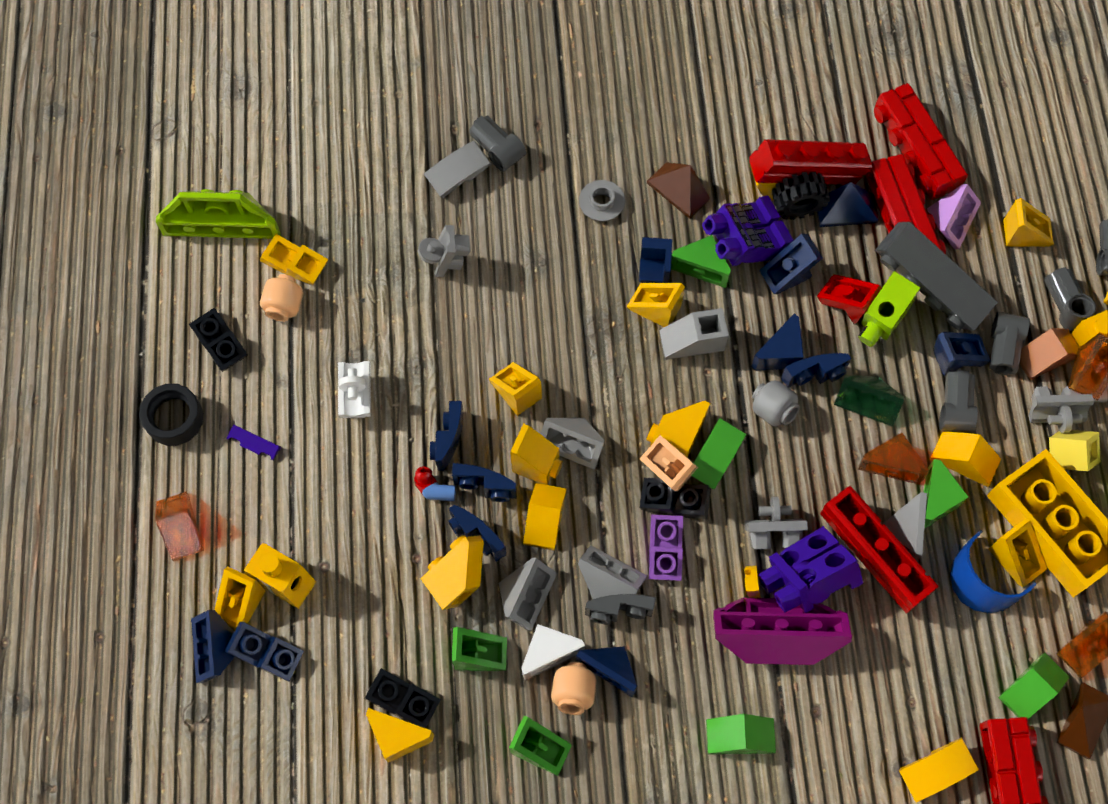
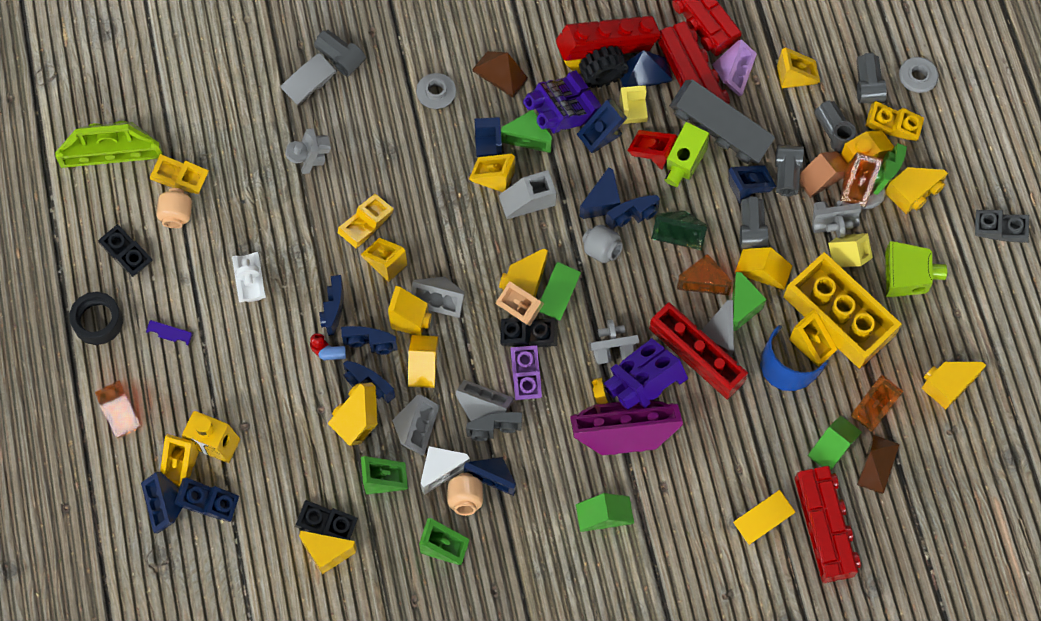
camera: 10 degrees left, 0 degrees up
(500, 341) = (366, 221): none -> yellow slope
(831, 242) = (633, 104): none -> light yellow panel

